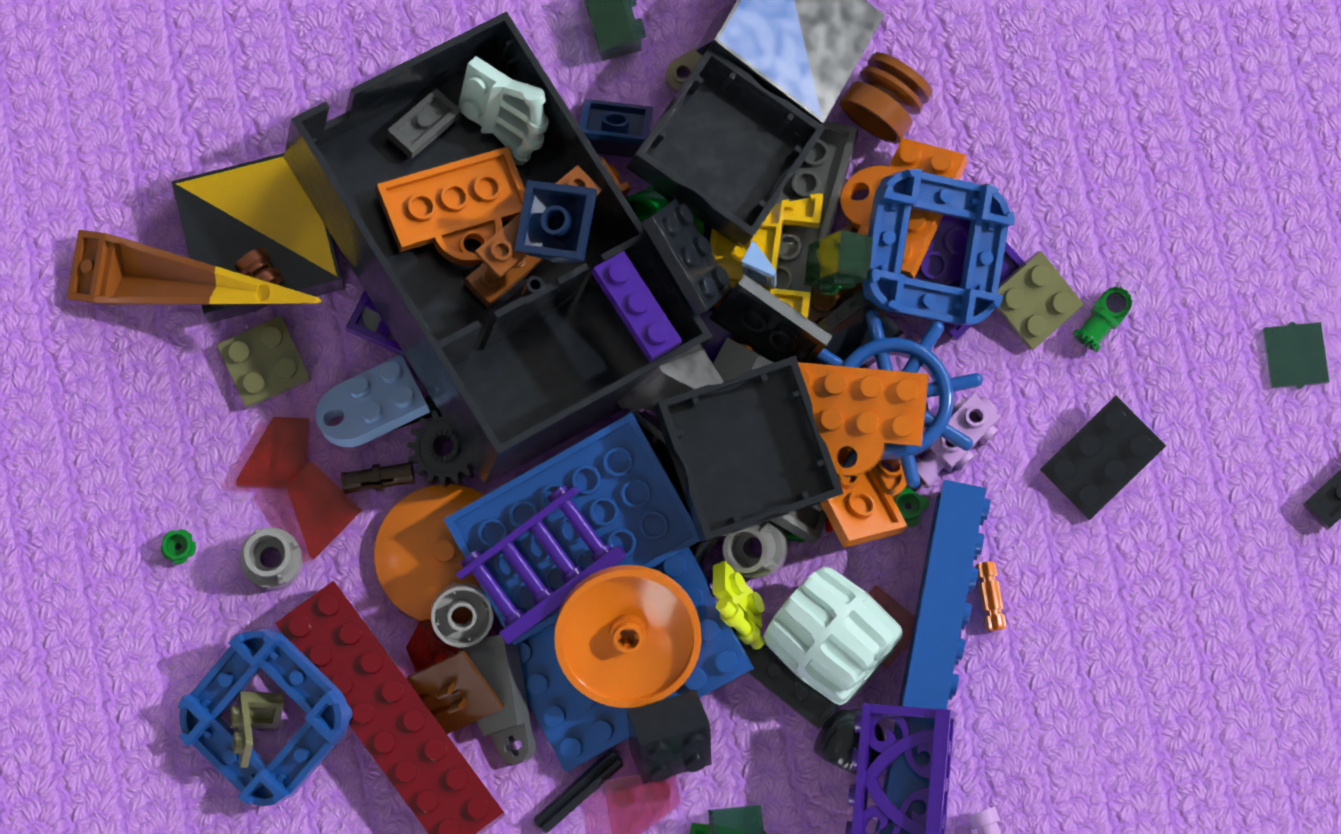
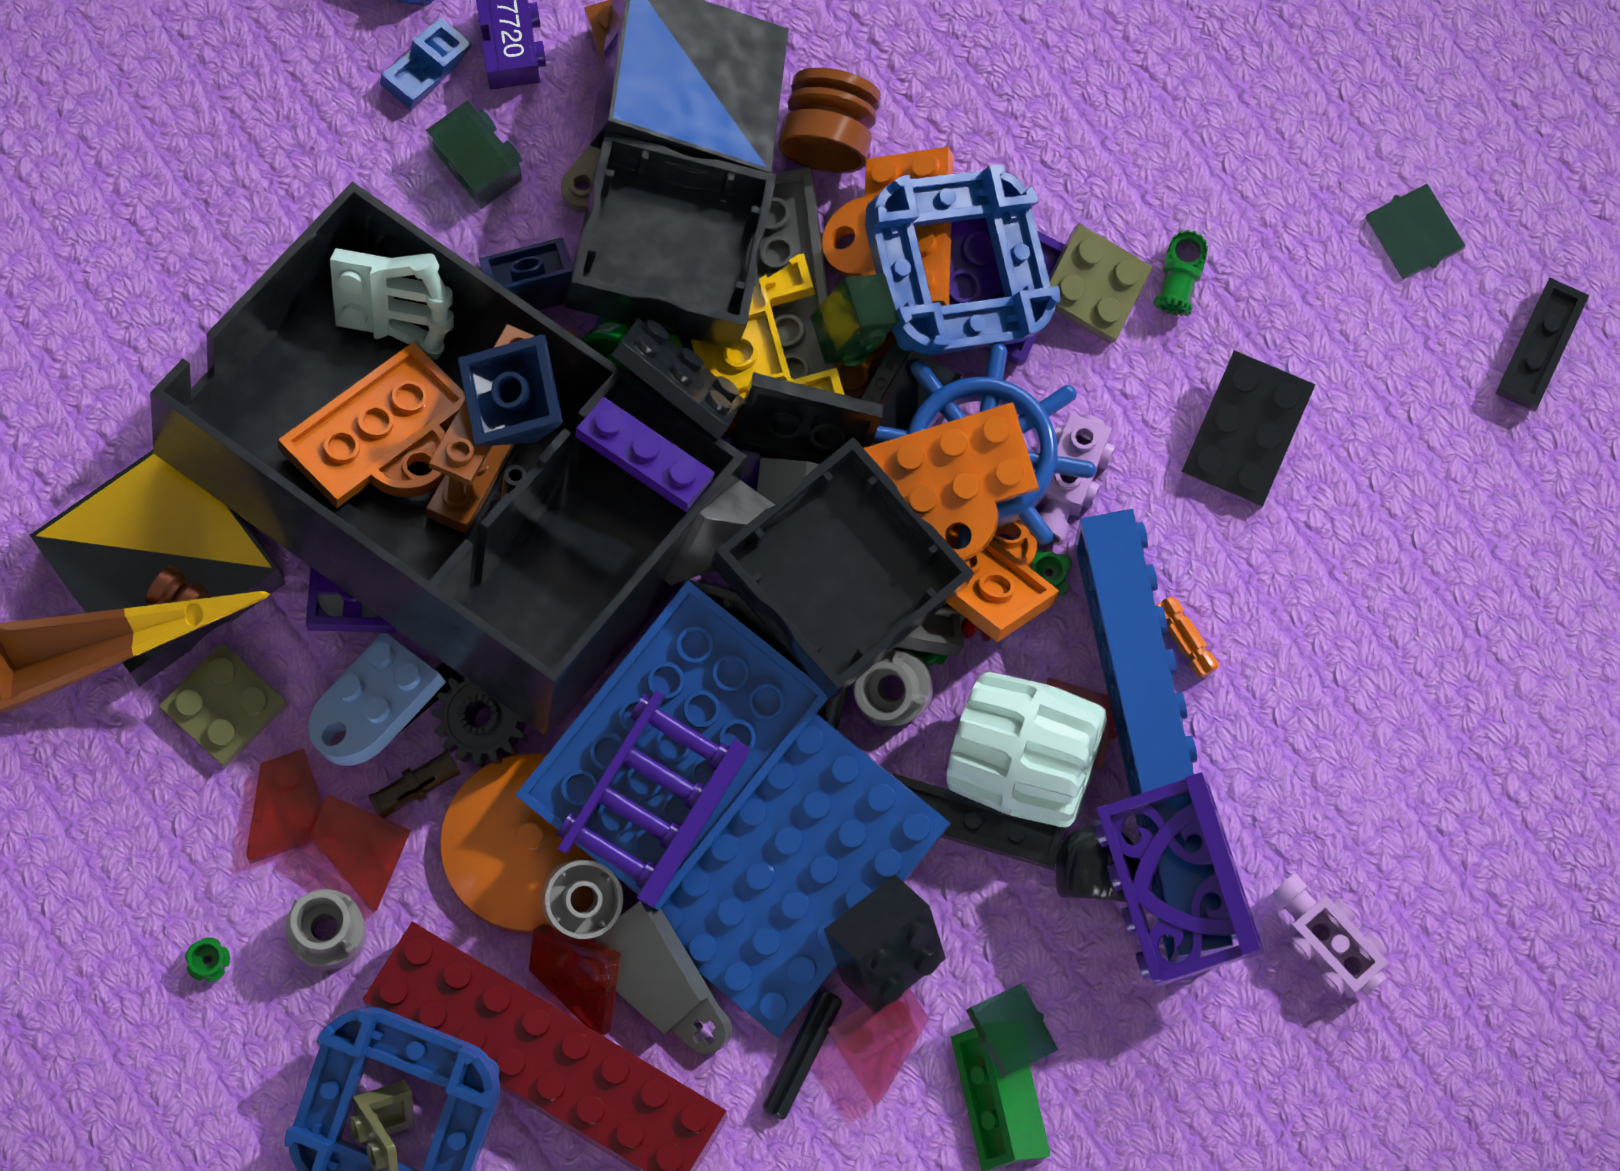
camera: 20 degrees left, 5 degrees down
(423, 123) = (303, 352): dark grey plate -> none
(455, 692) = (611, 992): reddish brown piece -> none
(627, 636) = (790, 841): orange dish -> none
(738, 604) = (901, 757): neon yellow plate -> none
(758, 268) = (766, 359): light blue slope -> none

